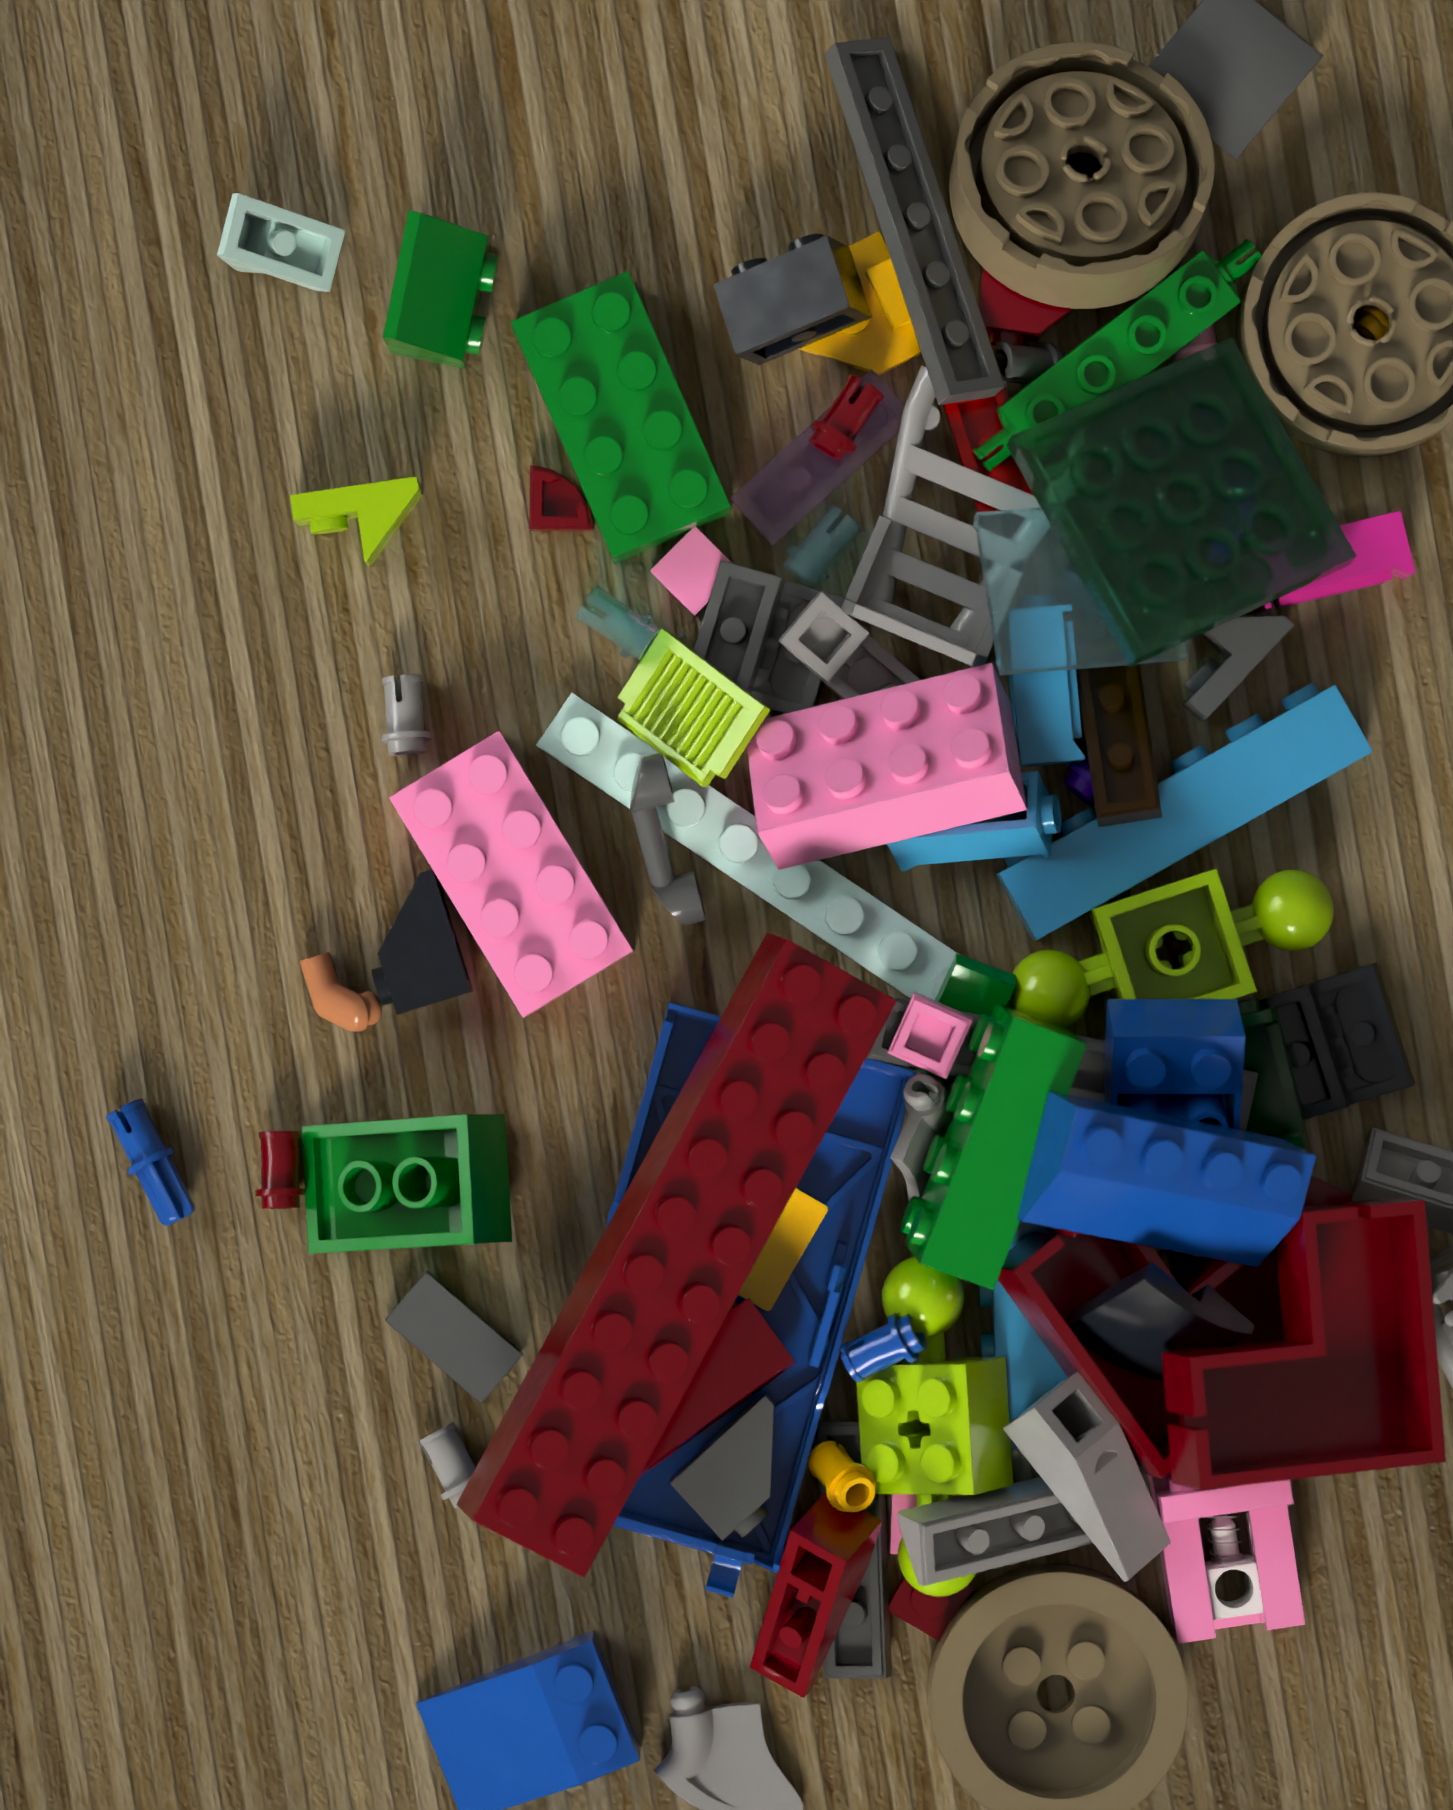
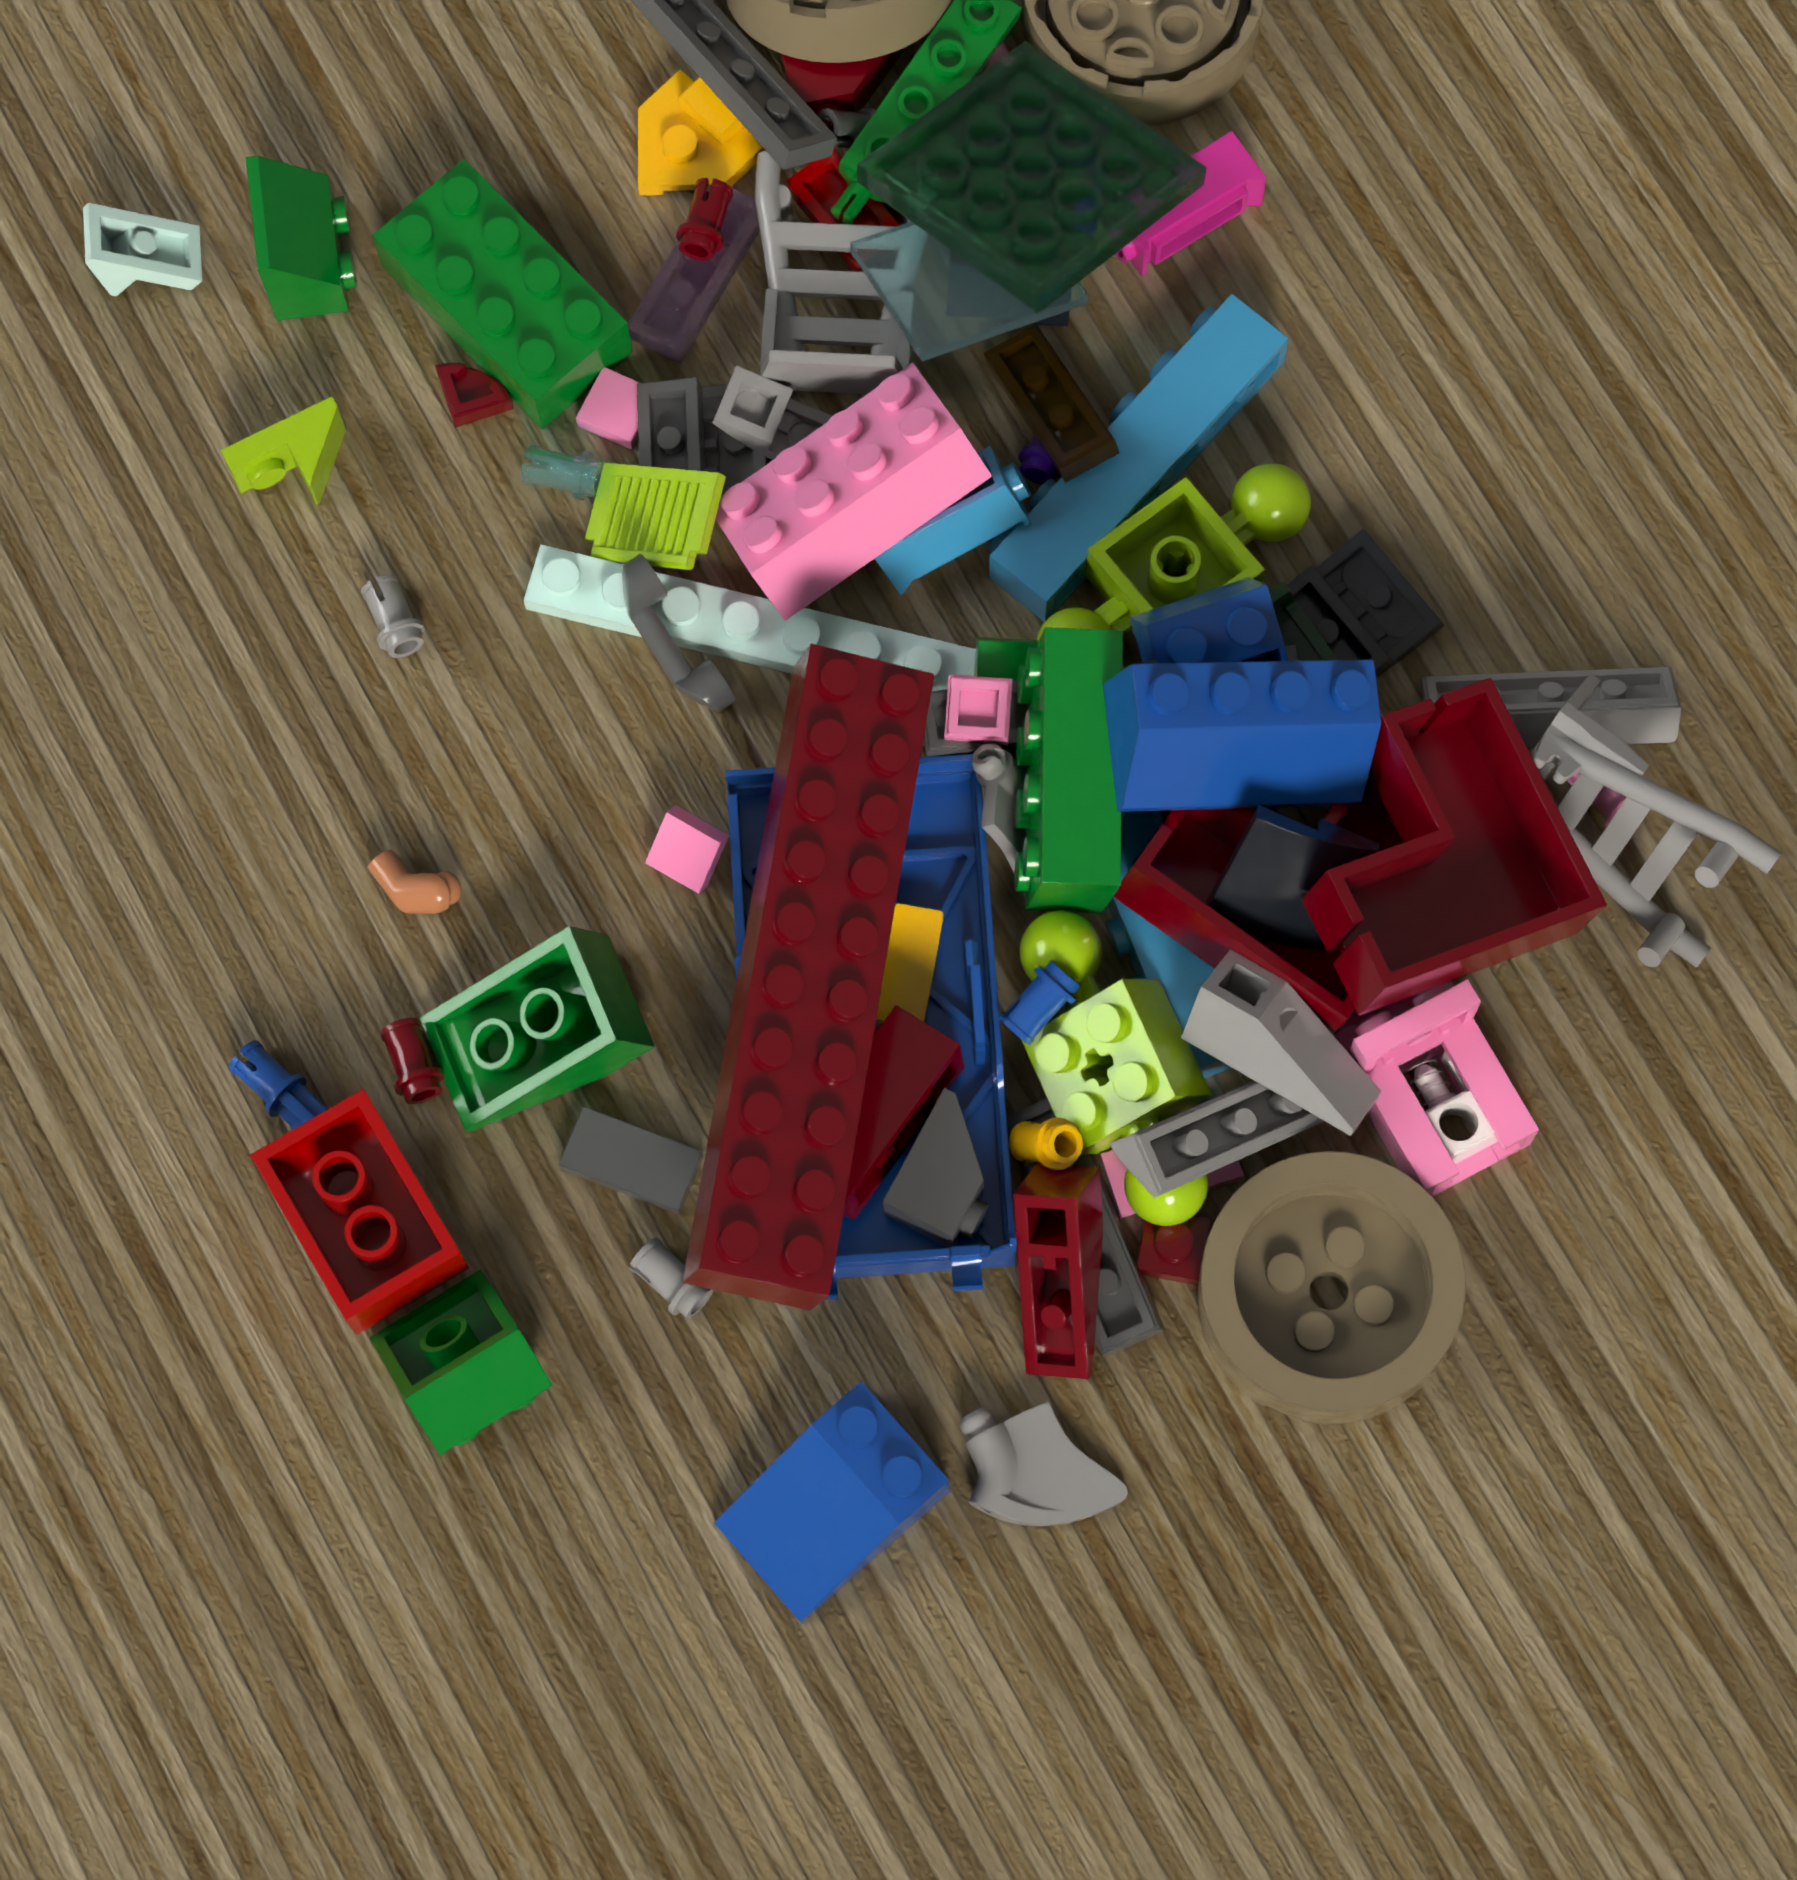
camera: 15 degrees left, 15 degrees down
(183, 1309) = (359, 1212): none -> red brick
(231, 1476) = (460, 1362): none -> green slope
(421, 952) = (480, 817): black slope -> none
(511, 874) = (540, 716): bright pink brick -> none
(608, 1055) = (687, 849): none -> bright pink tile
(791, 298) = (621, 140): black brick -> none
(821, 547) = (724, 345): clear light blue pin -> none
(1046, 717) = (977, 399): dark azure window -> none
(1243, 646) = (1131, 302): dark grey slope -> none

